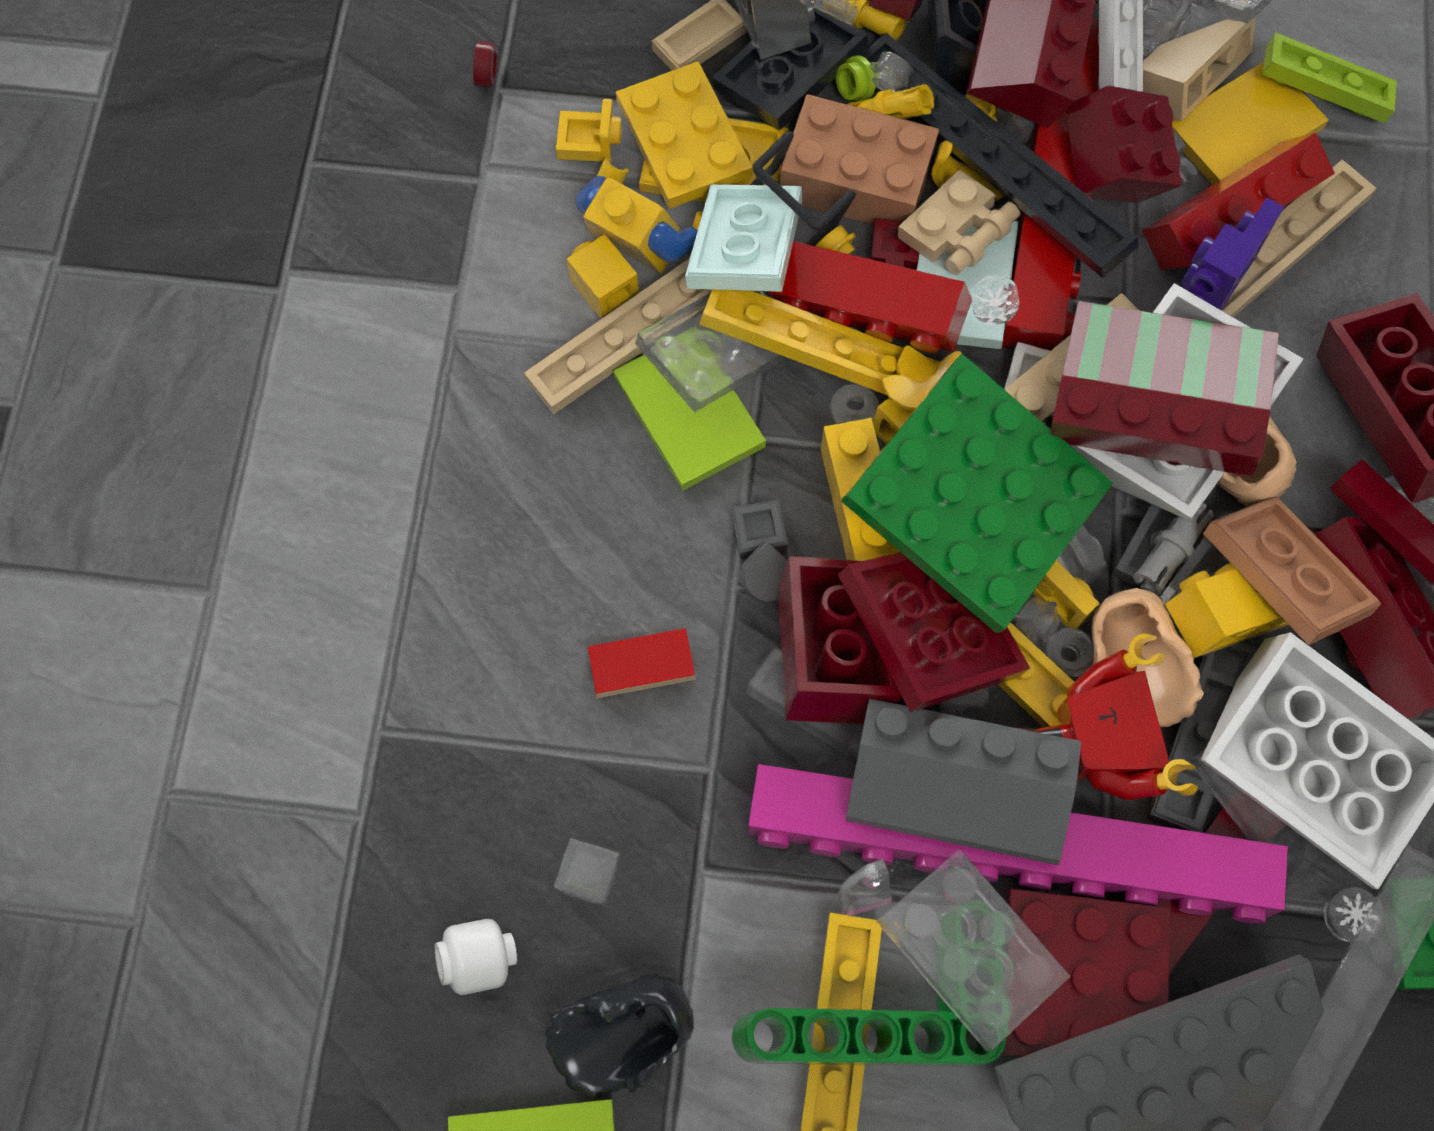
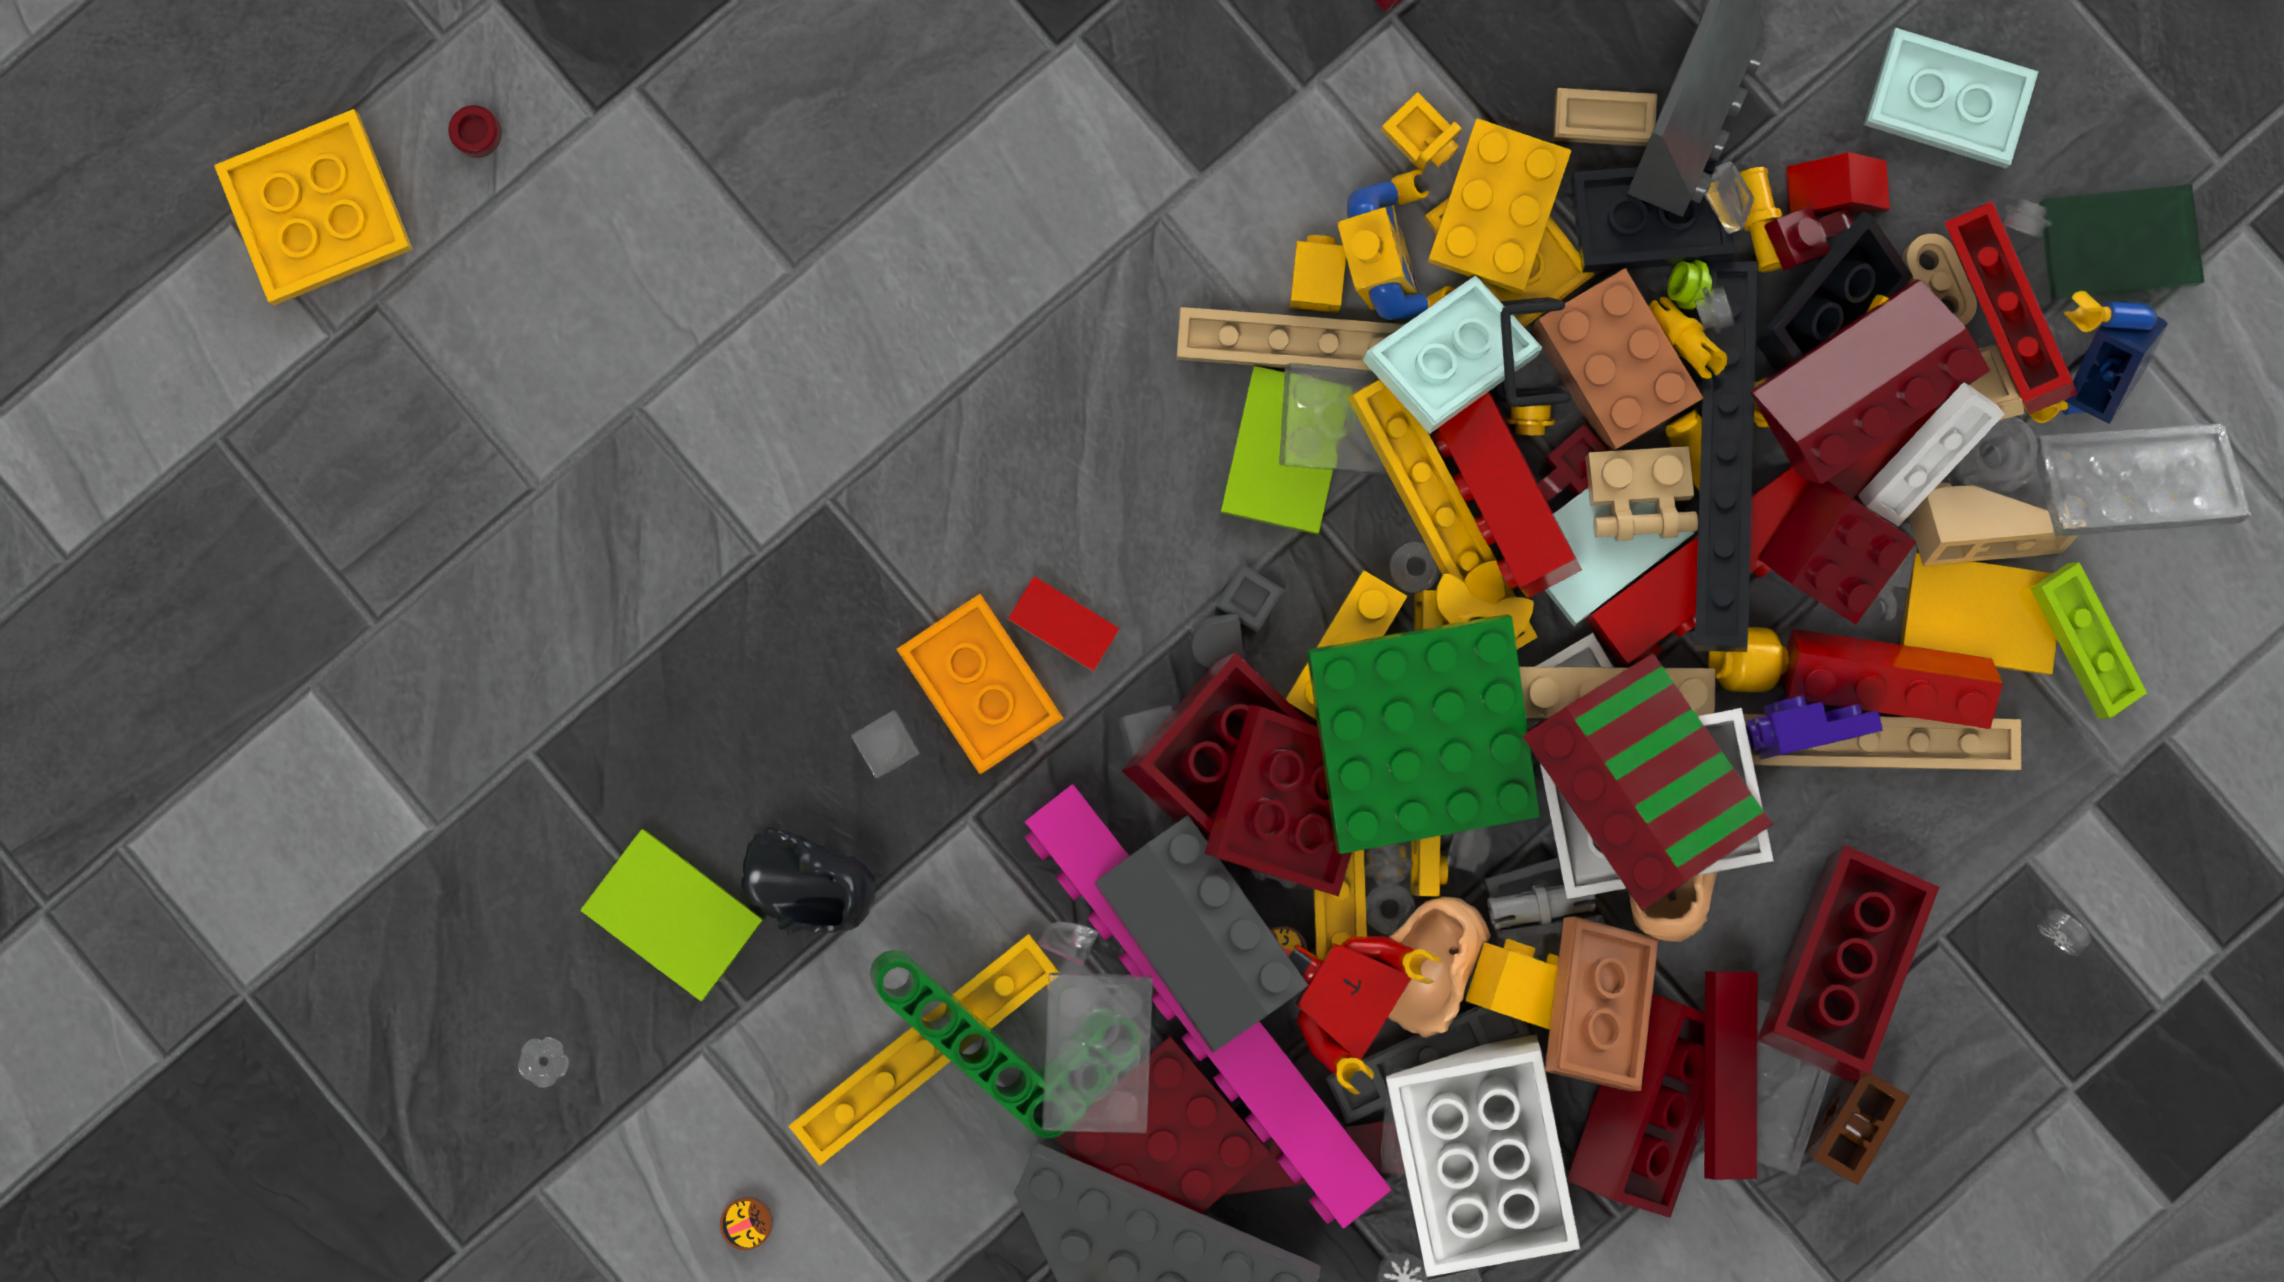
camera: 40 degrees right, 15 degrees up
(474, 956) = (753, 735): white head -> none
(618, 762) = (980, 684): none -> light orange tile
(994, 299) = (1601, 585): clear tile -> none
(1139, 274) = (1752, 670): none -> yellow head

